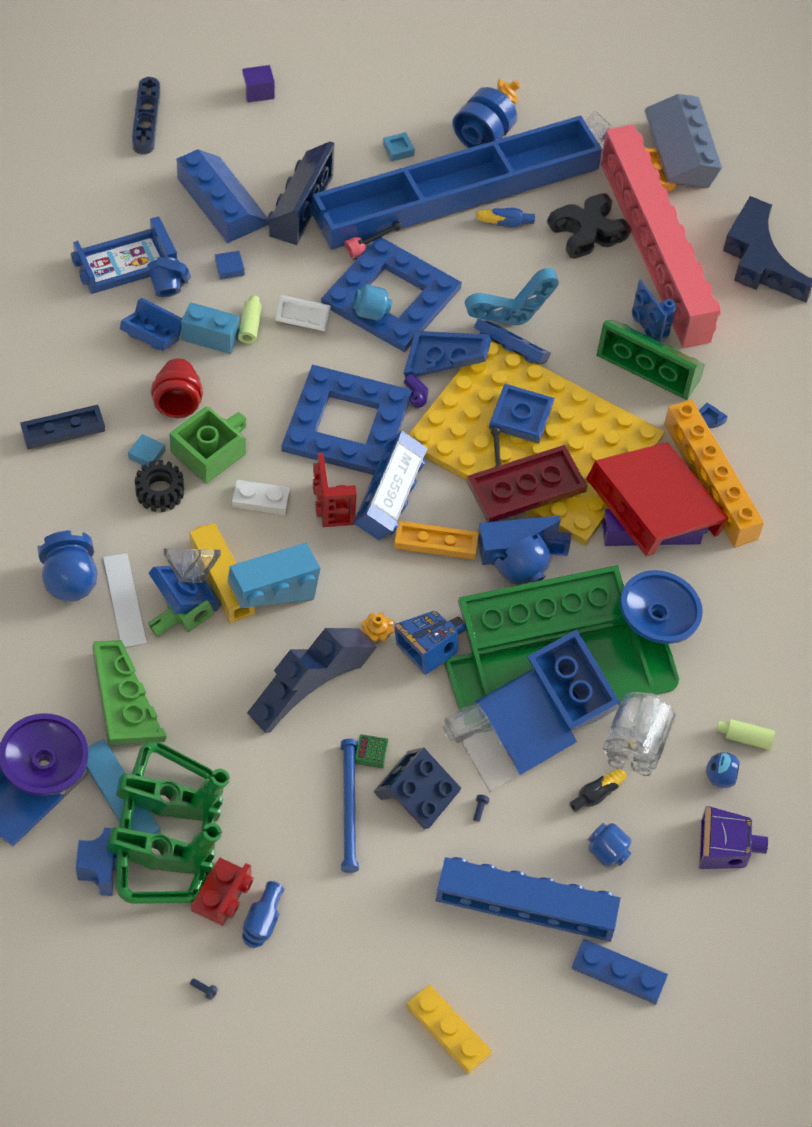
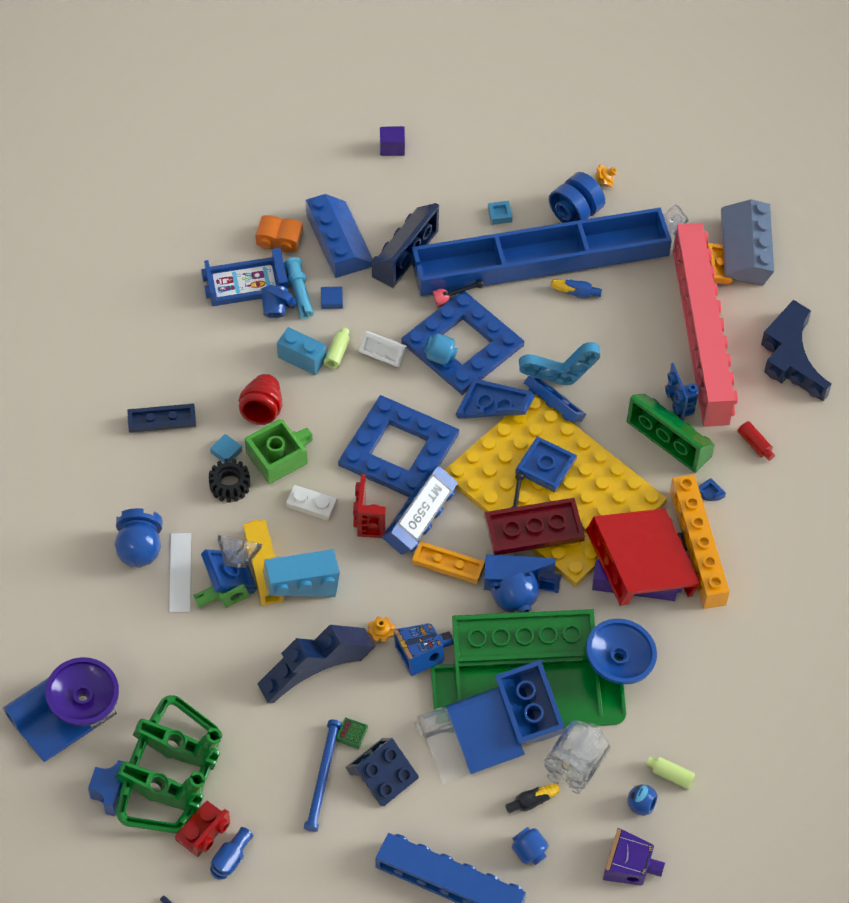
camera: 15 degrees right, 0 degrees up
(105, 772) = (131, 711): dark azure tile -> none
(123, 699) = (159, 654): bright green wing -> none
(148, 115) = (293, 156): dark blue beam -> none
(152, 200) = (279, 233): none -> orange brick
(152, 325) = (254, 342): blue bracket -> none
(186, 251) = (297, 280): none -> medium azure pin
(419, 391) = (465, 433): dark purple arm -> none
(482, 801) = (433, 790): dark blue piece -> none
(589, 225) = (646, 306): black piece -> none
(746, 354) = (756, 440): none -> red cylinder

